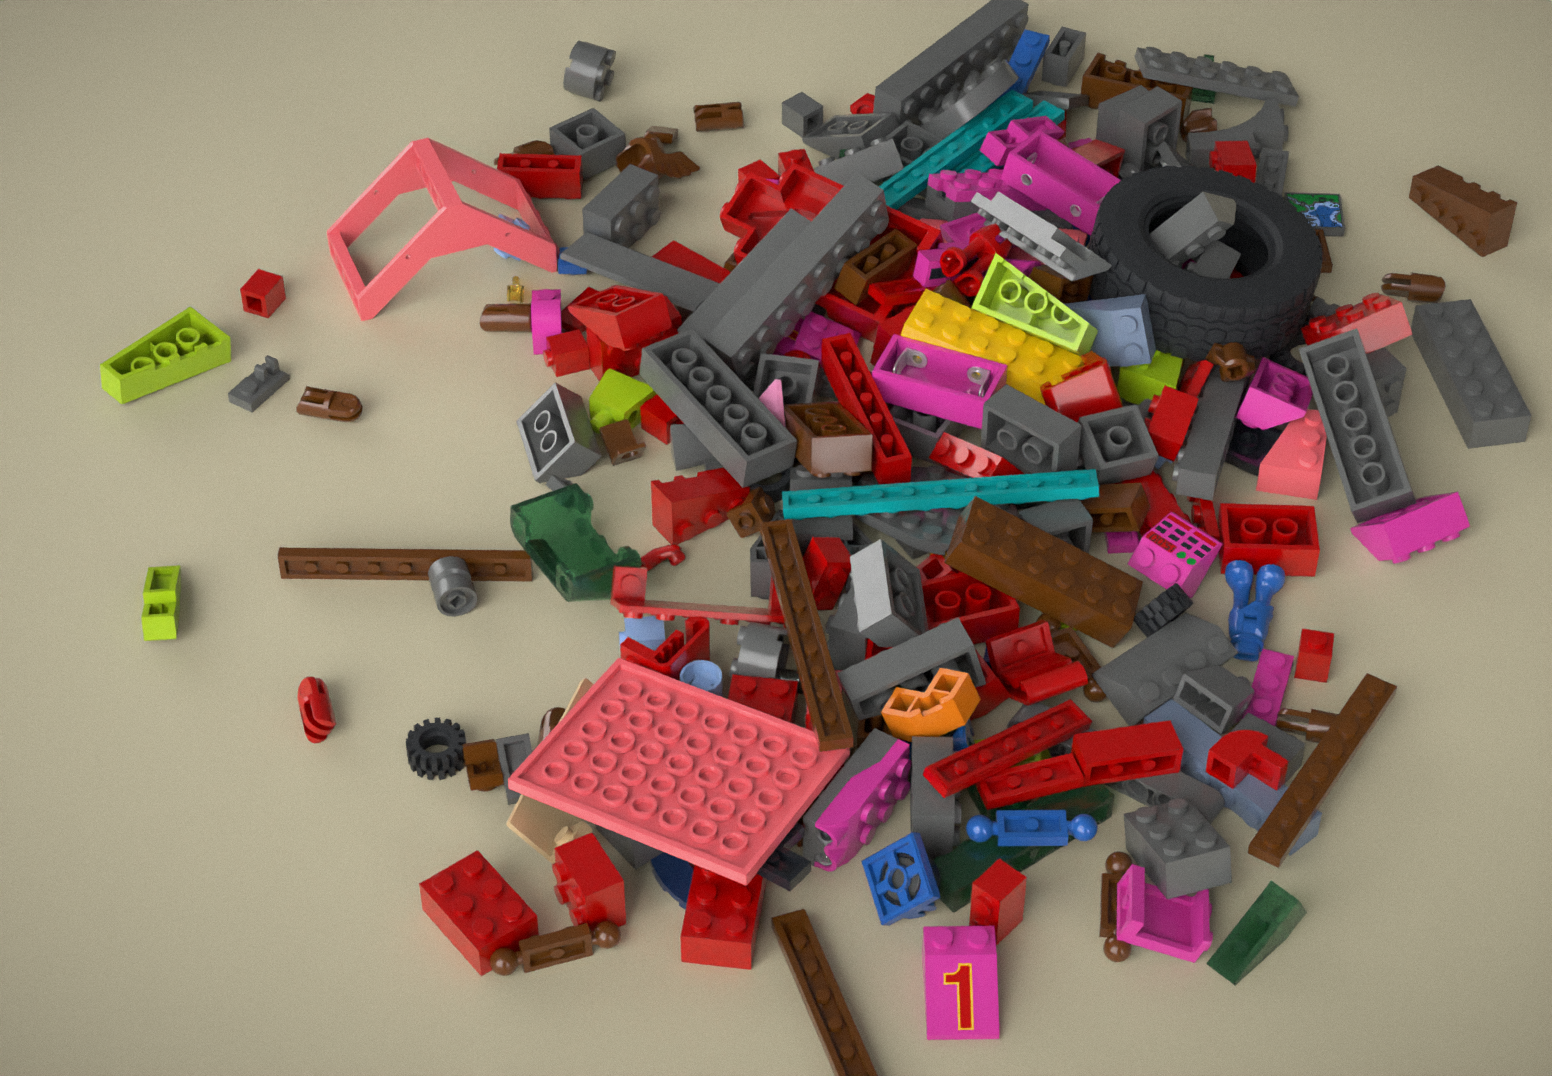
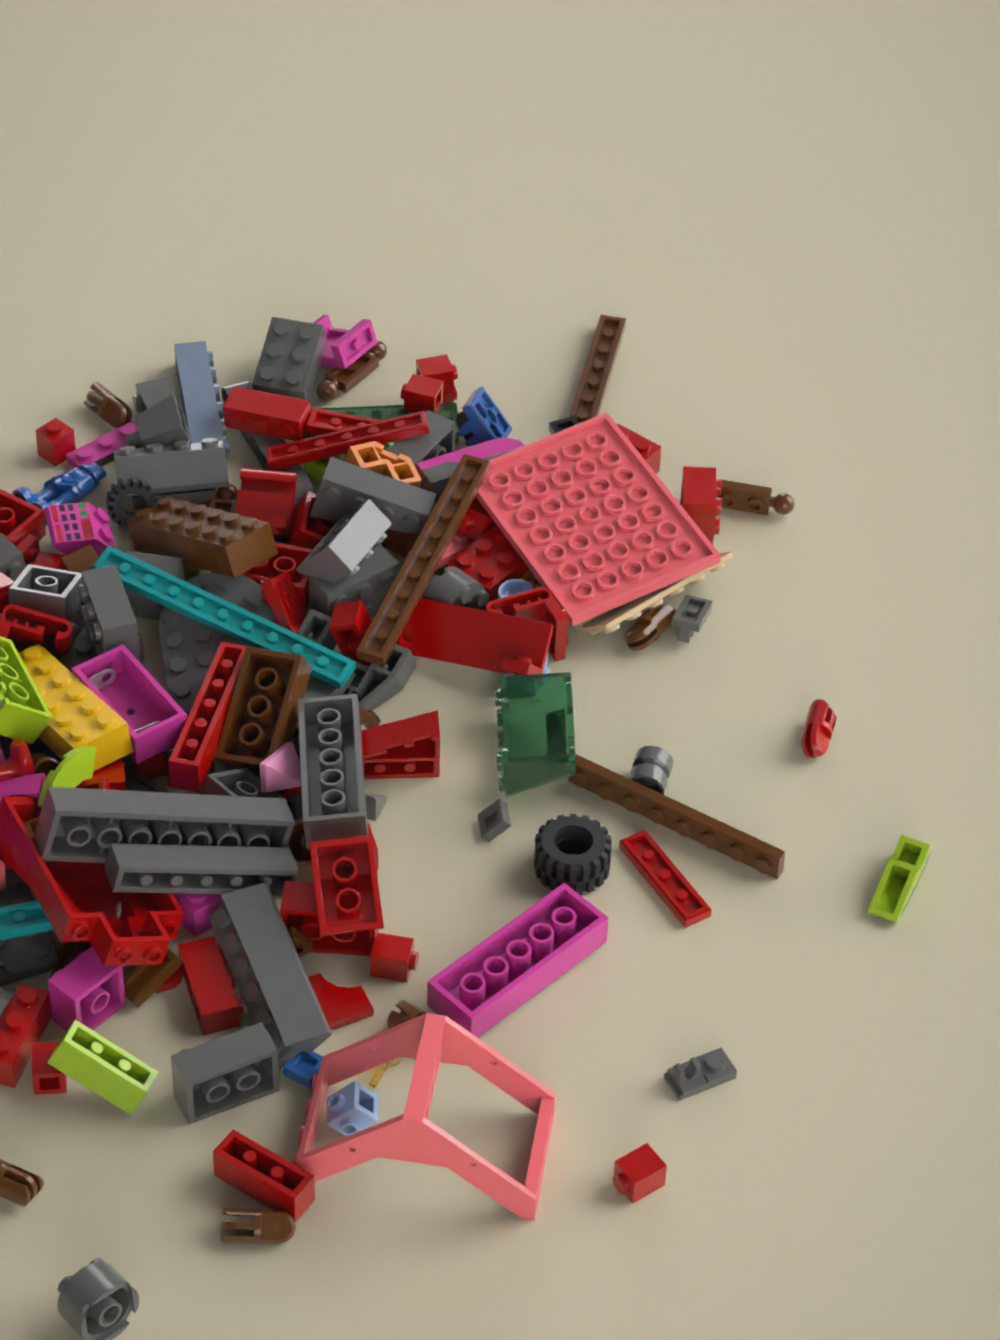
camera: 150 degrees left, 0 degrees up
(165, 356) = (781, 1126): lime wedge -> none
(329, 405) = (648, 1006): reddish brown arm -> none
(384, 520) = (665, 878): none -> red tile
(436, 734) = (741, 673): black tyre -> none
(457, 382) = (518, 961): none -> dark pink brick
(473, 485) = (567, 837): none -> black tyre
(477, 910) = (782, 536): red brick -> none
(482, 765) = (716, 628): reddish brown bracket -> none
(545, 317) = (386, 989): dark pink brick -> none
(558, 435) = (463, 874): dark grey slope -> none
(590, 137) = (181, 1196): dark grey brick -> none
(617, 399) = (397, 881): lime torso -> none
(621, 442) = (413, 844): reddish brown bracket -> none
(649, 154) = (140, 1138): reddish brown helmet -> none
(660, 554) = (456, 737): red arm -> none
(665, 134) = (86, 1190): reddish brown tile -> none
(709, 173) = (102, 1067): none -> lime brick
(912, 275) = (74, 769): none -> lime tile
(912, 541) = (284, 601): none -> red plate
(960, 982) = (495, 371): dark pink slope -> none
(969, 460) = (159, 650): red brick -> none
(983, 850) = (422, 394): none -> red brick
(1031, 828) = (371, 399): blue plate -> none
(1244, 754) = (195, 379): red brick -> none
(1257, 933) = (262, 308): clear green slope -> none
(1322, 770) = (143, 360): reddish brown plate -> none

